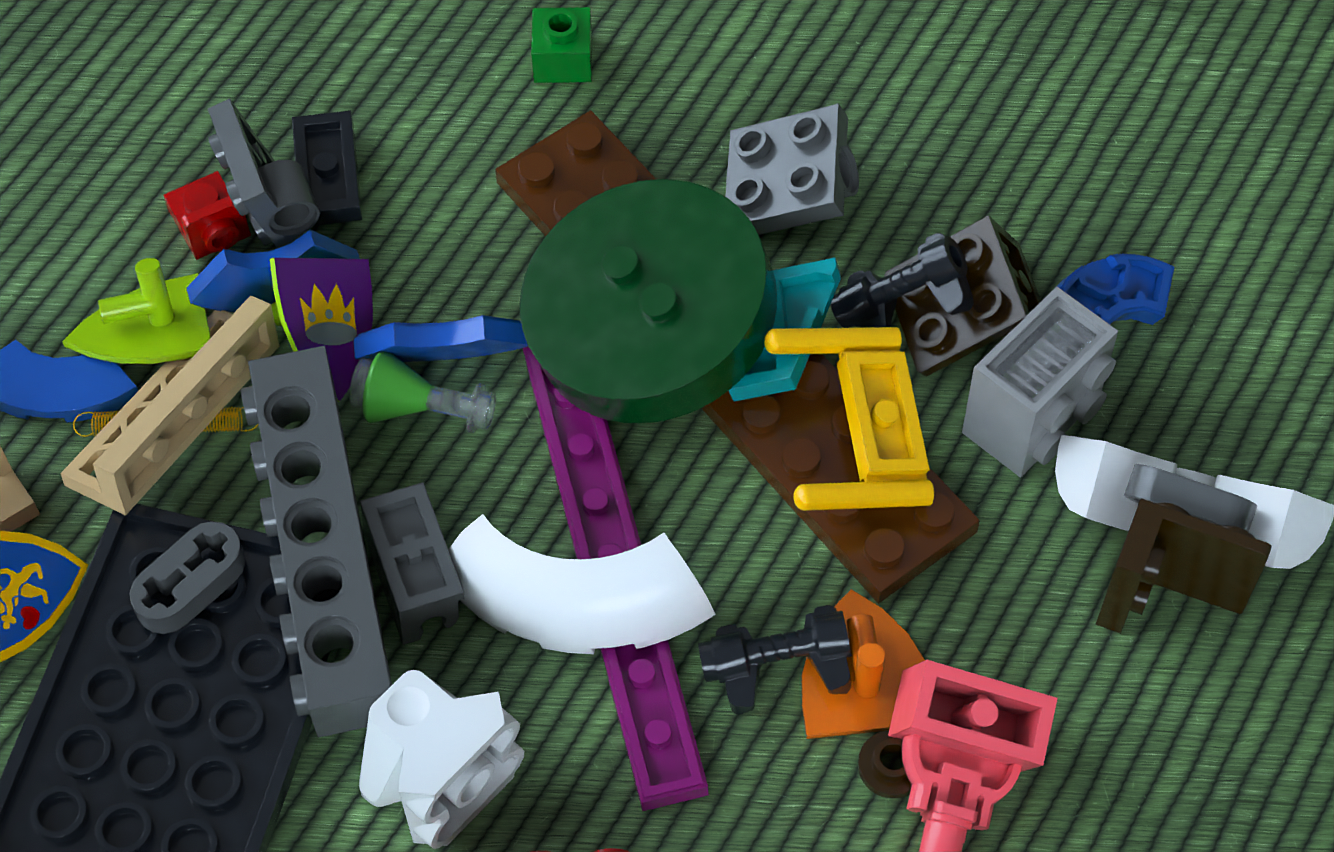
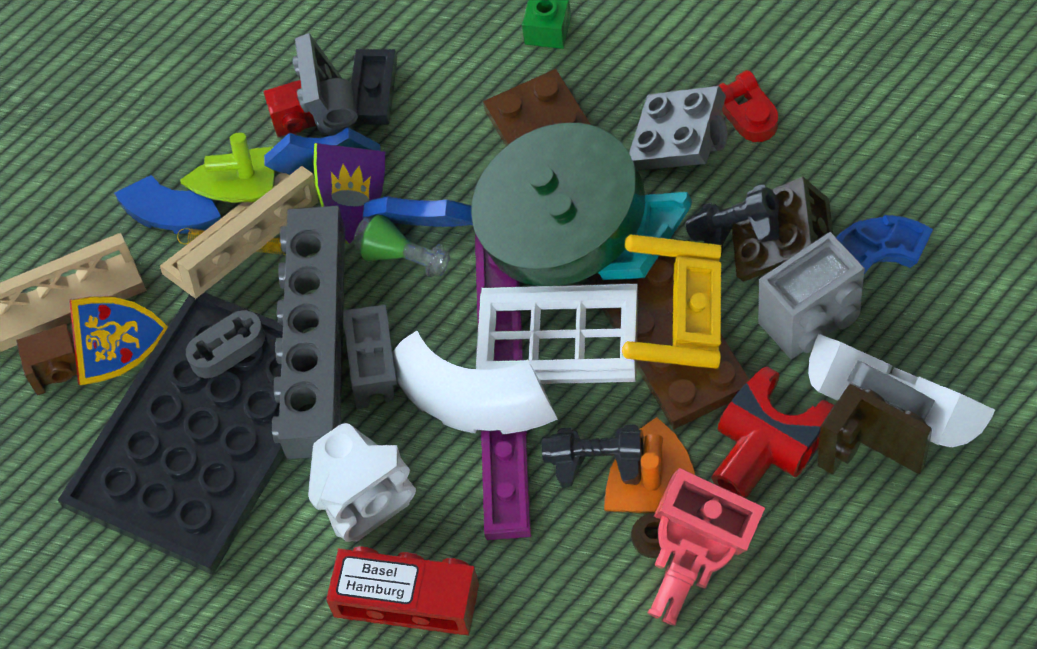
camera: 20 degrees right, 0 degrees up
(683, 435) = (561, 297): none -> white piece
(891, 142) = (758, 116): none -> red plate
(1019, 592) = (765, 435): none -> red connector

